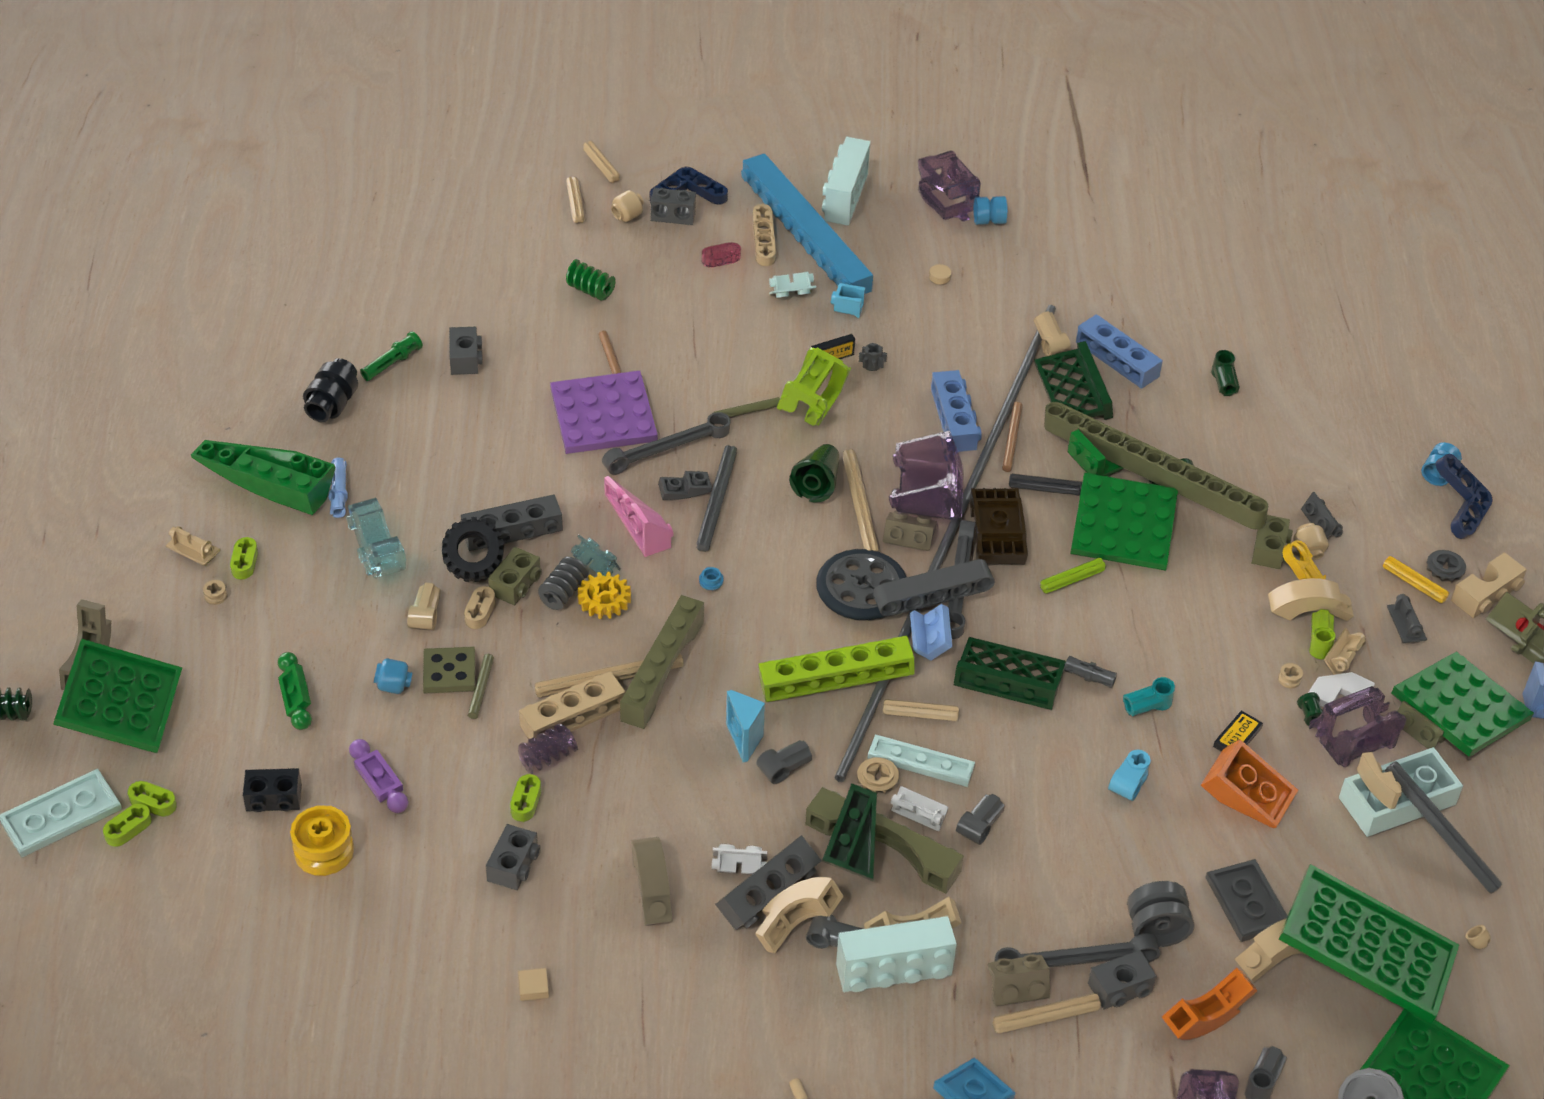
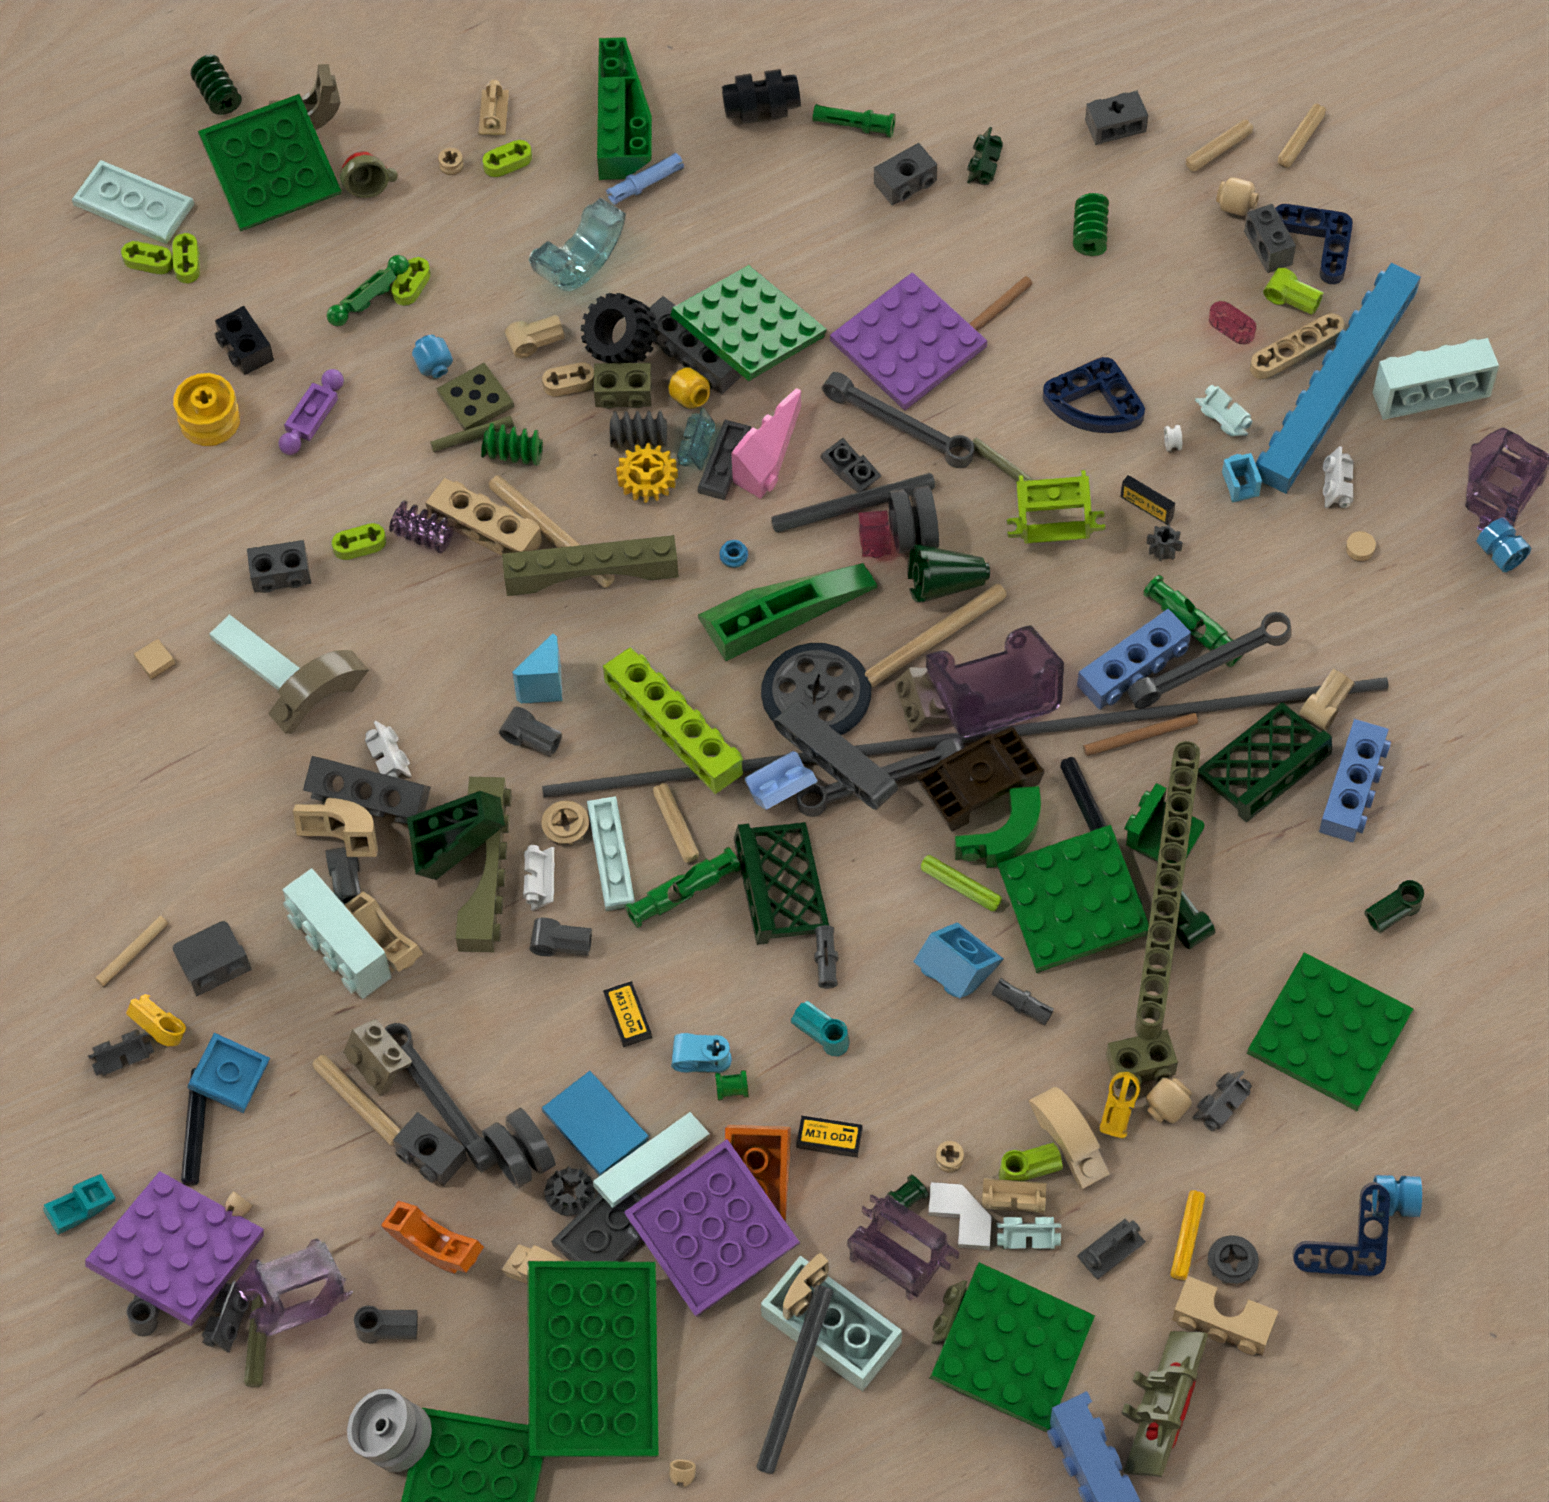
camera: 65 degrees right, 15 degrees up
(184, 642) = (366, 175): none -> olive piece
(311, 660) = (415, 283): none -> lime beam
(483, 309) = (986, 148): none -> dark green hinge
(511, 232) = (1116, 117): none -> dark grey brick
(516, 660) = (512, 445): none -> green piece
(522, 480) = (748, 322): none -> plate
(549, 539) = (689, 388): none -> yellow head
(587, 908) = (253, 652): none -> light aqua tile
(627, 553) = (718, 471): none -> dark grey tile
(718, 218) = (1287, 289): none -> lime piece
(719, 332) = (1105, 383): none -> dark blue beam
(755, 495) = (874, 534): none -> clear pink brick
(766, 463) = (908, 519): none -> dark grey wheel
(776, 578) = (780, 607): none -> green wedge
(792, 318) = (1173, 438): none -> white bush
(857, 1059) = (211, 957): none -> dark grey bracket
(882, 261) = (1337, 469): none -> white hinge
(923, 372) = (1189, 615): none -> green piece
(981, 727) = (696, 879): none -> green piece
(985, 408) = (1149, 690): none -> dark grey piece
(1053, 525) = (1011, 838): none -> green arch
(1068, 808) = (627, 1014): none -> tile
(1138, 602) = (957, 960): none -> dark azure slope
(1151, 863) = (595, 1123): none -> dark azure tile
(1167, 769) = (731, 1085): none -> green bush
(1189, 583) = (1022, 1001): none -> dark grey pin
(1206, 844) = (651, 1159): none -> light aqua tile
(1214, 912) = (565, 1203): none -> dark grey gear
(1288, 825) = (711, 1228): none -> medium lavender plate
(1297, 446) = (1330, 1031): none -> green plate
(1373, 660) = (1041, 1231): none -> light aqua hinge

